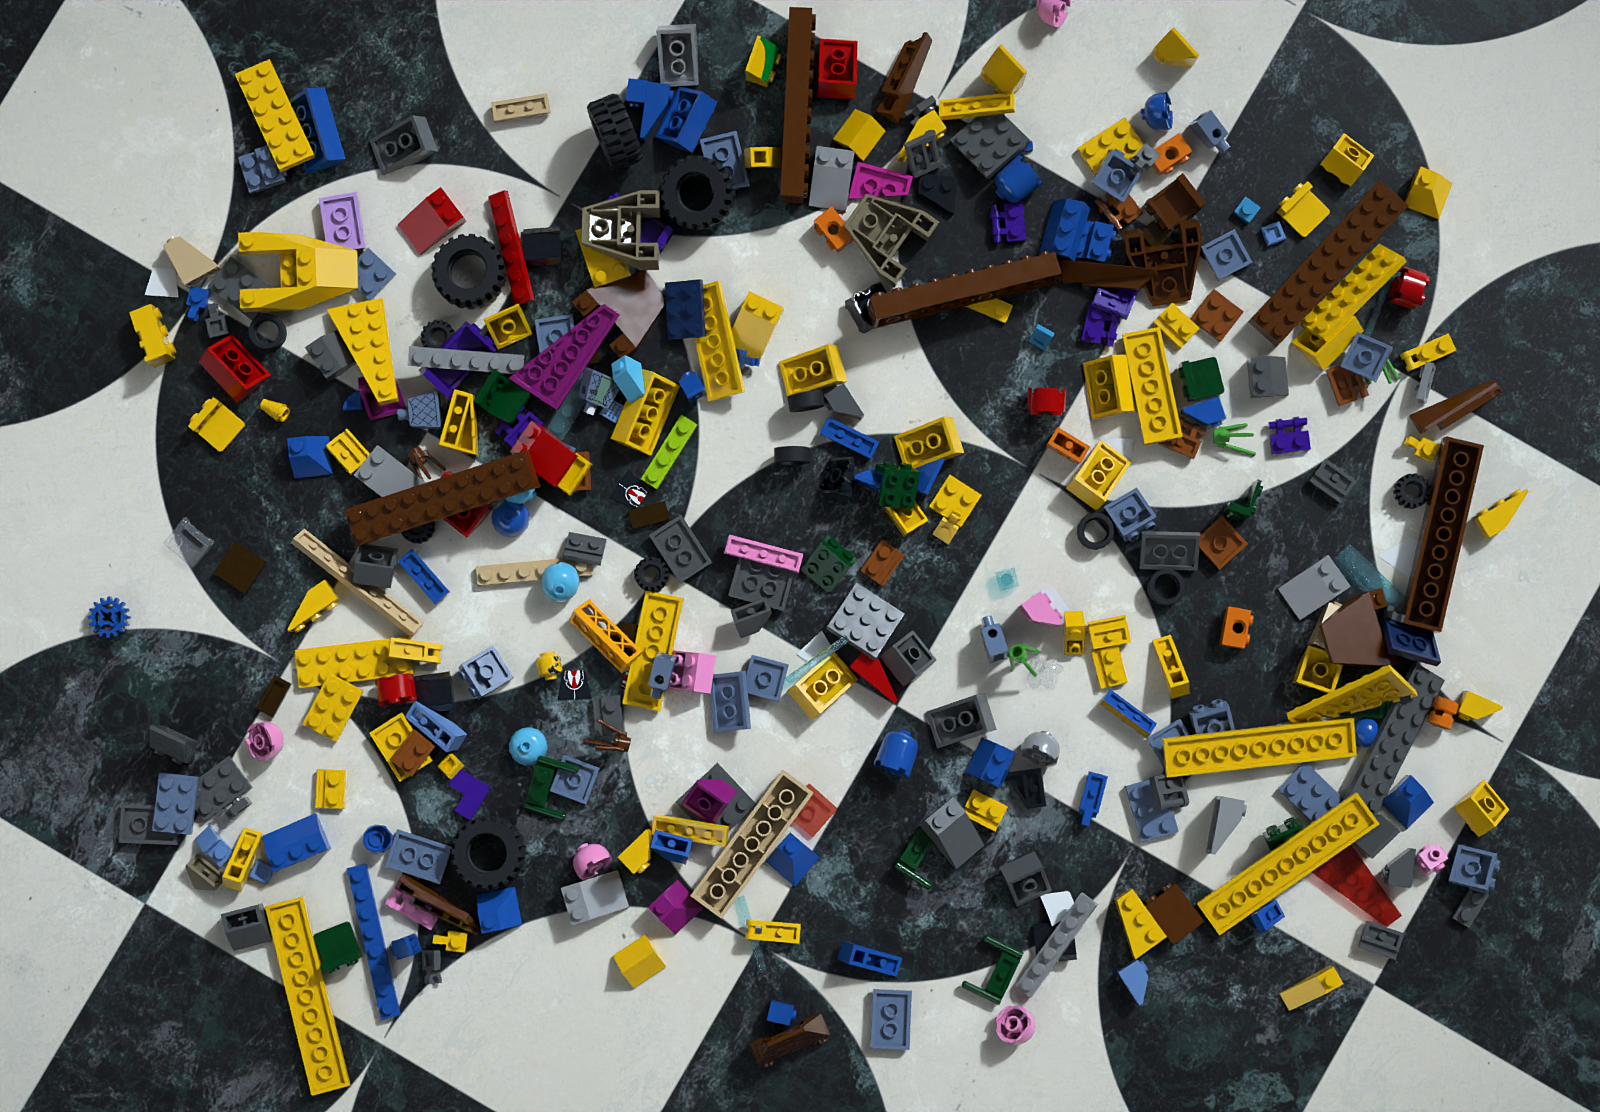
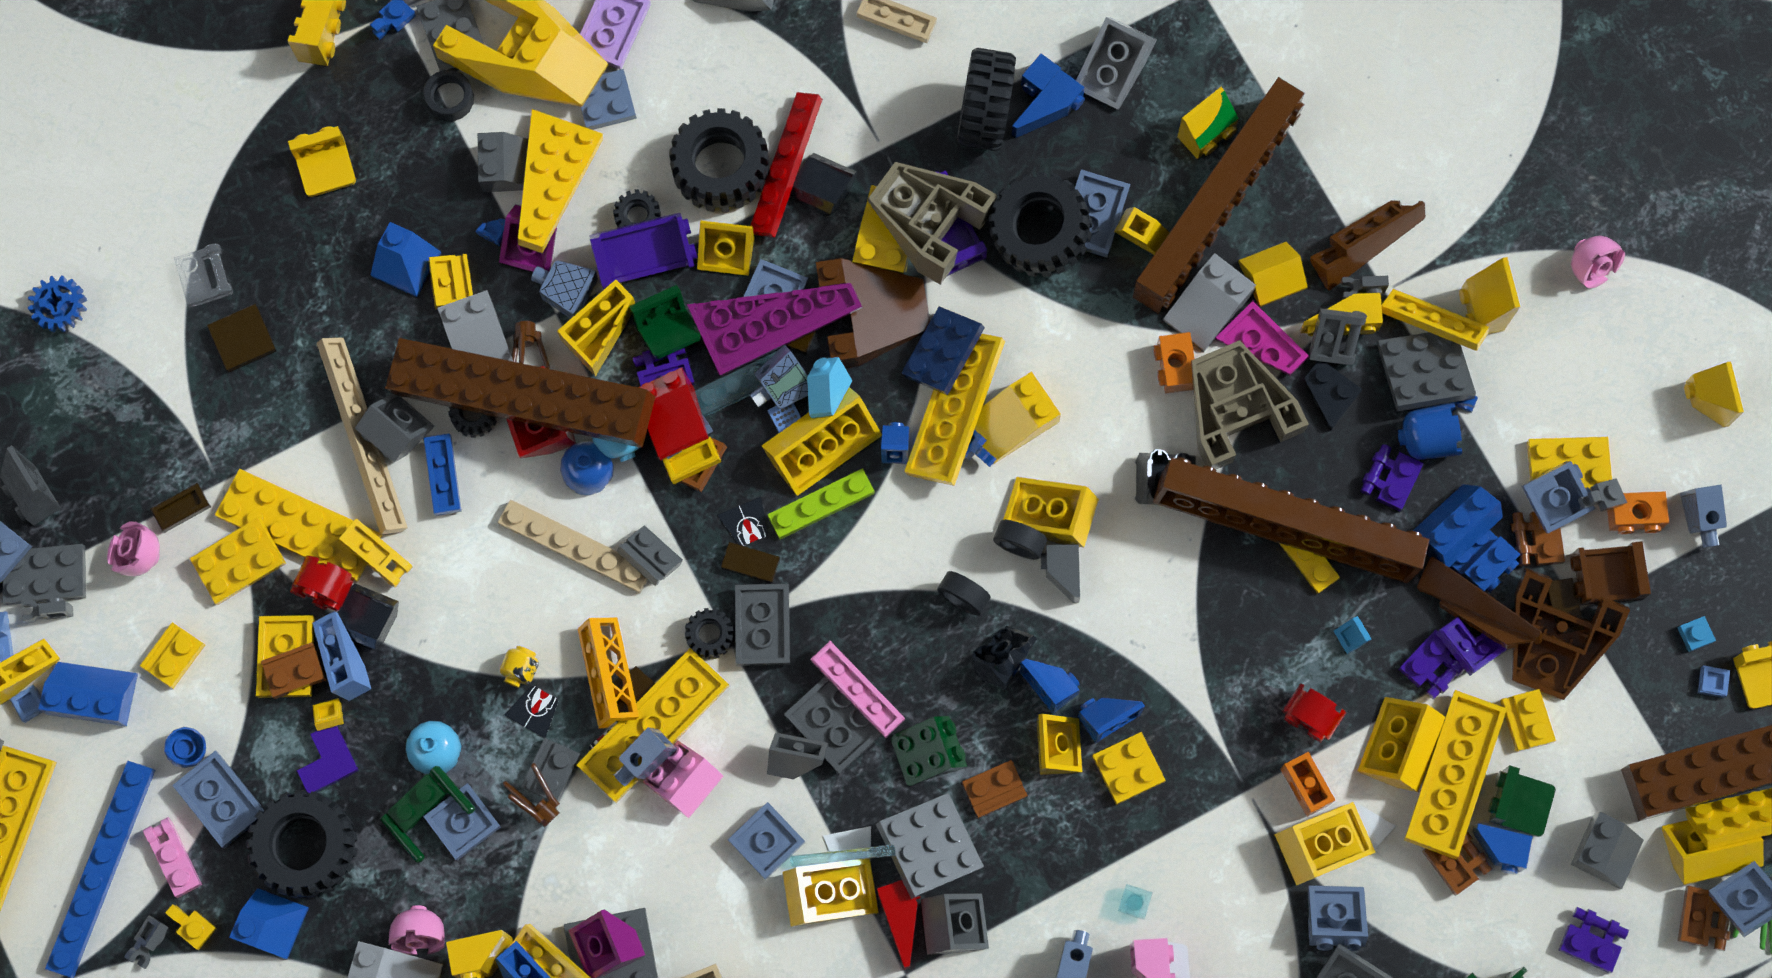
camera: 30 degrees right, 10 degrees down
(216, 324) = (398, 52): dark grey plate -> none
(234, 368) = (384, 111): red slope -> none
(276, 410) = (400, 187): yellow cone -> none
(315, 602) = (299, 428): yellow slope -> none
(337, 947) = (53, 848): dark green bracket -> none
(405, 946) = (132, 896): blue slope -> none
(431, 221) = (714, 81): red slope -> none
(435, 904) = (200, 867): reddish brown wedge -> none
(464, 360) = (649, 254): light grey plate -> none
(484, 672) = (438, 629): plate -> none
(560, 582) = (595, 576): medium azure cylinder -> none
(686, 119) = (1080, 138): blue slope -> none
(730, 702) = (705, 843): sand blue plate -> none
(837, 69) = (1292, 184): red slope -> none
(849, 438) = (1046, 615): blue plate -> none
(897, 485) = (1068, 703): dark green bracket -> none
(929, 442) = (1139, 677): yellow slope -> none
(947, 529) = (1098, 794): yellow plate -> none
(1109, 535) = (1292, 892): black tyre -> none
(1158, 112) = (1652, 453): blue cylinder -> none
(1216, 315) = (1586, 738): dark orange plate -> none
(1221, 436) = (1509, 887): bright green plant -> none
(1226, 255) = (1639, 672): sand blue plate -> none

